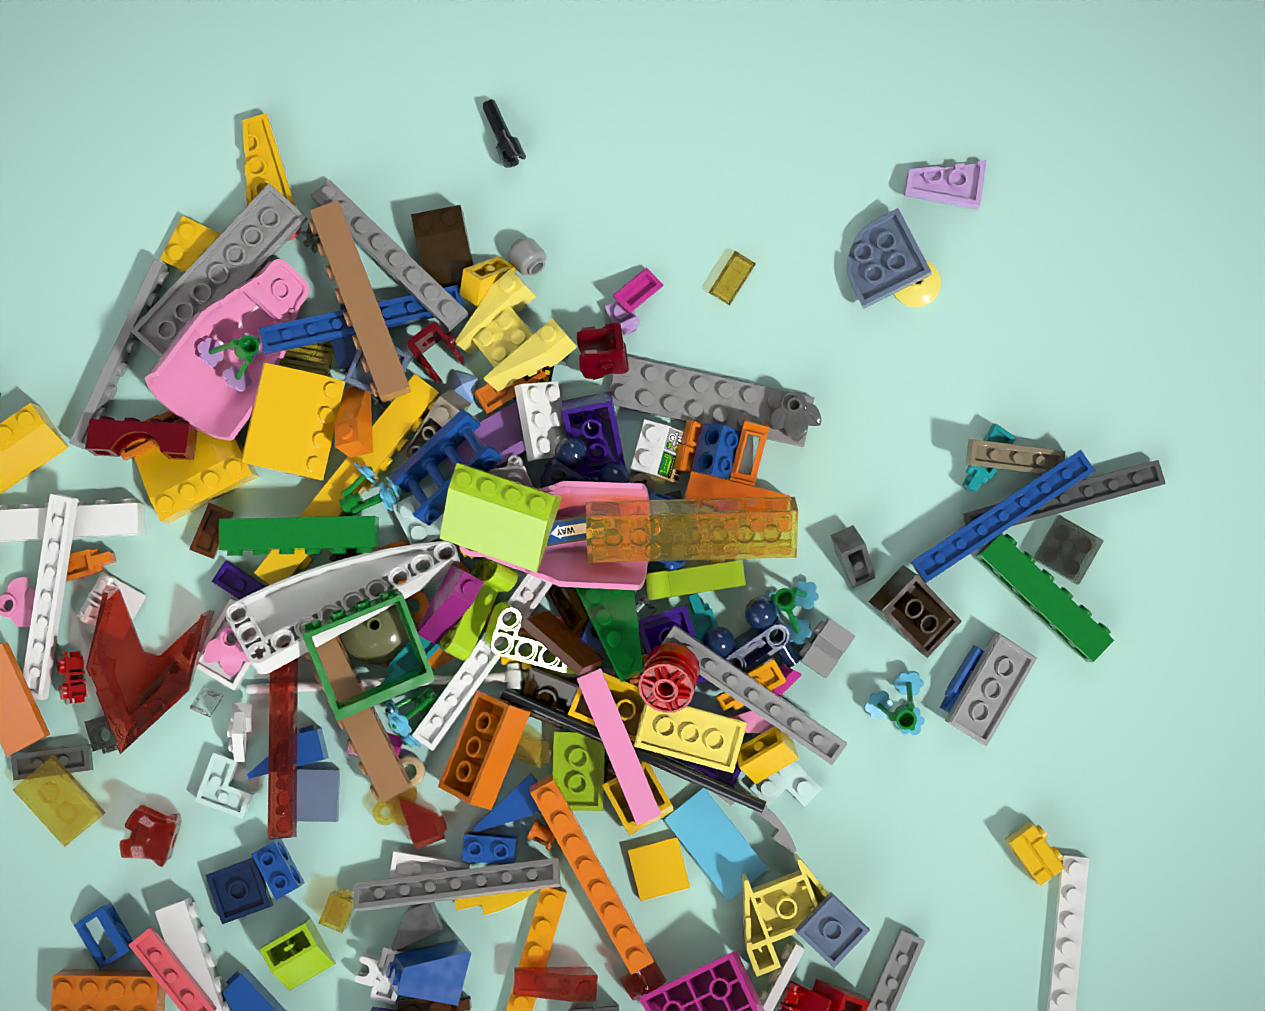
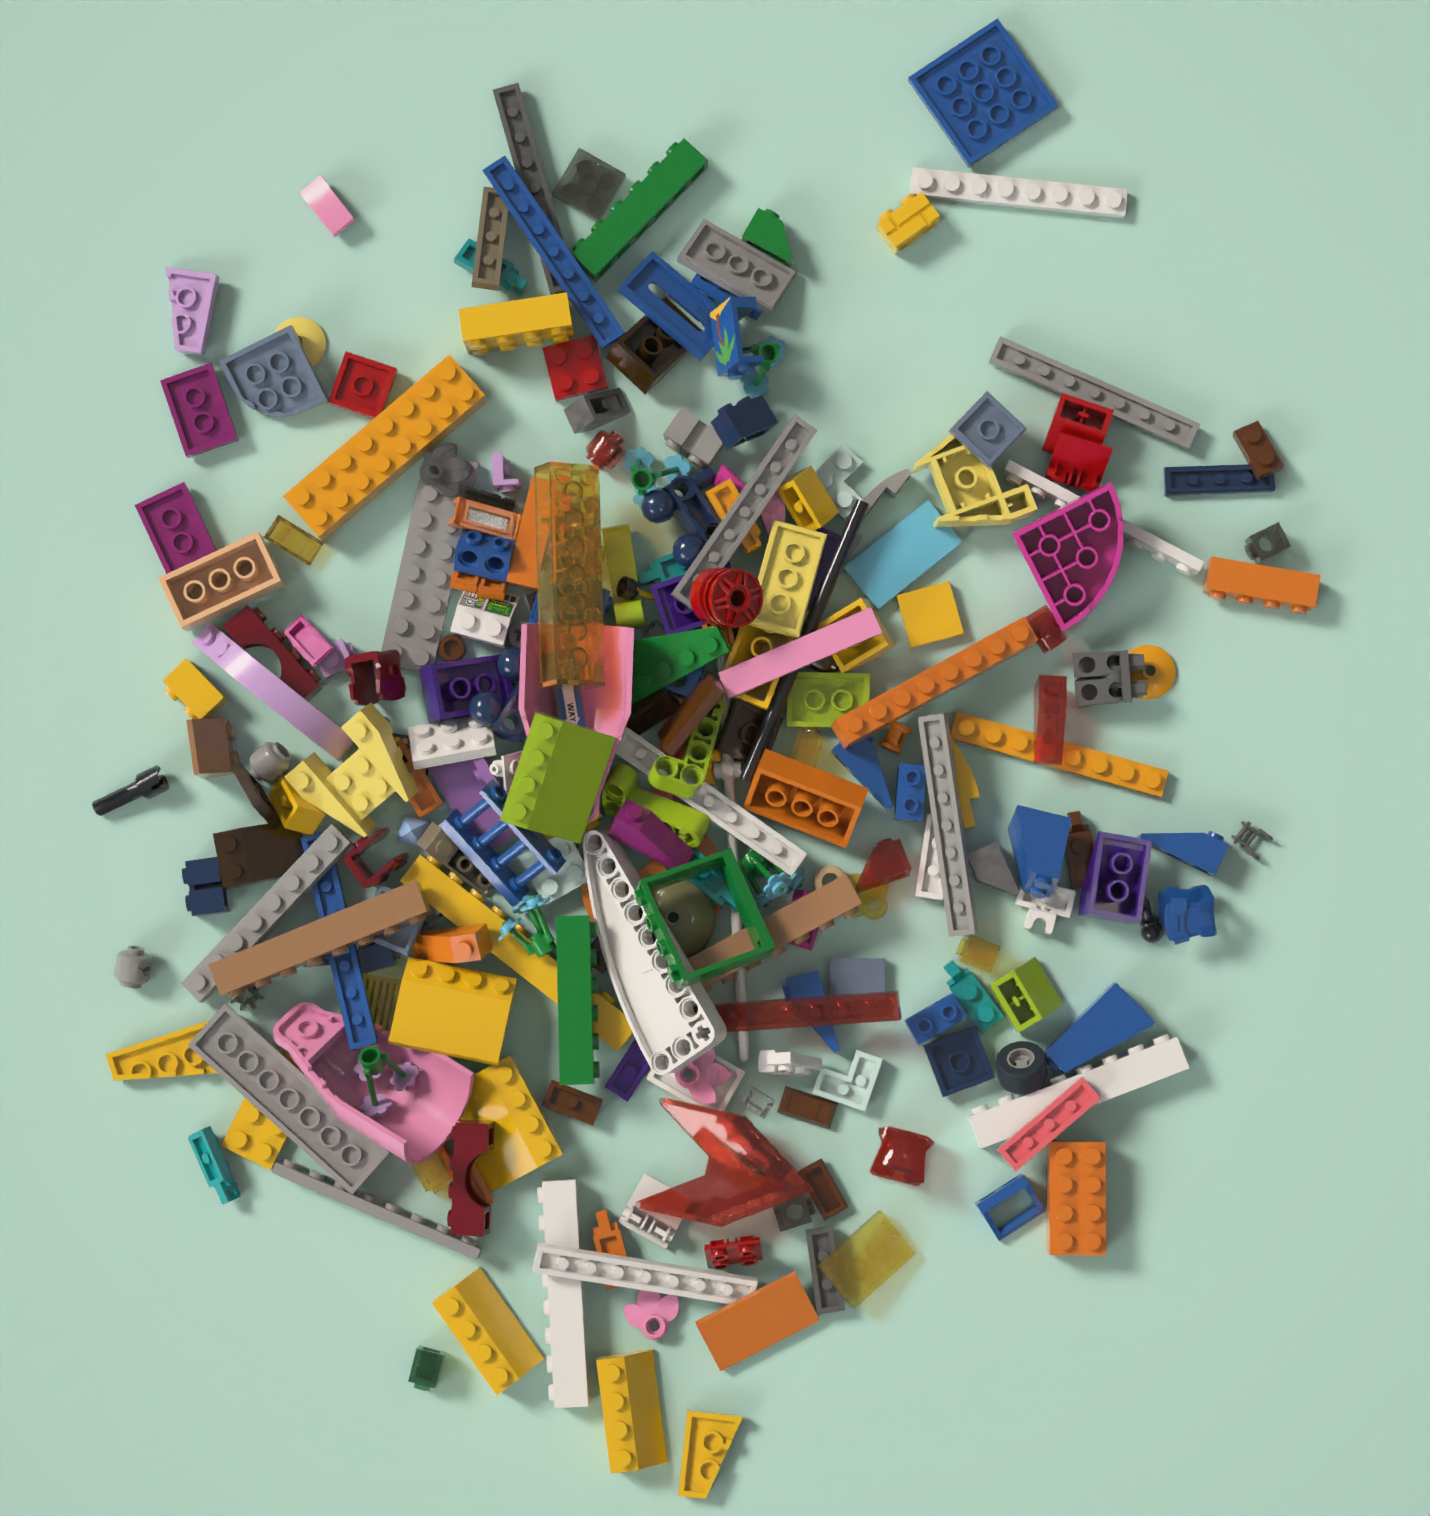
camera: 85 degrees left, 0 degrees up
(120, 765) = (826, 1193): none -> reddish brown tile
(147, 405) = (432, 1173): none -> clear yellow brick
(165, 209) = (214, 1164): none -> teal hinge
(202, 746) = (807, 1107): none -> reddish brown tile
(229, 950) = (1021, 1067): none -> black wheel
(298, 904) = (972, 997): none -> teal hinge
(343, 136) = (133, 967): none -> light grey head
(413, 199) = (205, 887): none -> dark blue piece
(494, 243) = (256, 795): none -> dark brown tile
(540, 204) = (212, 747): none -> medium nougat slope
(589, 255) = (273, 691): none -> lavender arch
(593, 189) = (194, 690): none -> yellow brick
(600, 280) = (250, 631): none -> dark red arch
(631, 422) = (452, 648): none -> reddish brown tile
(682, 586) = (629, 589): none -> black hinge
(693, 212) = (221, 581): none -> light nougat brick
(741, 172) = (175, 527): none -> magenta plate
(768, 455) = (488, 498): none -> pearl dark grey axle
(797, 467) = (500, 469): none -> lavender bracket
(815, 564) = (606, 449): none -> clear red head
(816, 360) = (385, 448): none -> light orange brick
(841, 694) = (744, 421): none -> dark blue piece
(852, 191) = (199, 410): none -> magenta plate
(875, 340) = (362, 385): none -> red plate
(893, 536) = (575, 368): none -> red plate
(921, 680) = (727, 338): none -> blue panel
(934, 481) = (516, 324): none -> yellow brick
(985, 613) = (658, 272): none -> blue piece
(1020, 720) = (769, 236): none -> green slope
(1045, 307) = (327, 206): none -> bright pink slope
(1163, 928) = (983, 93): none -> blue plate

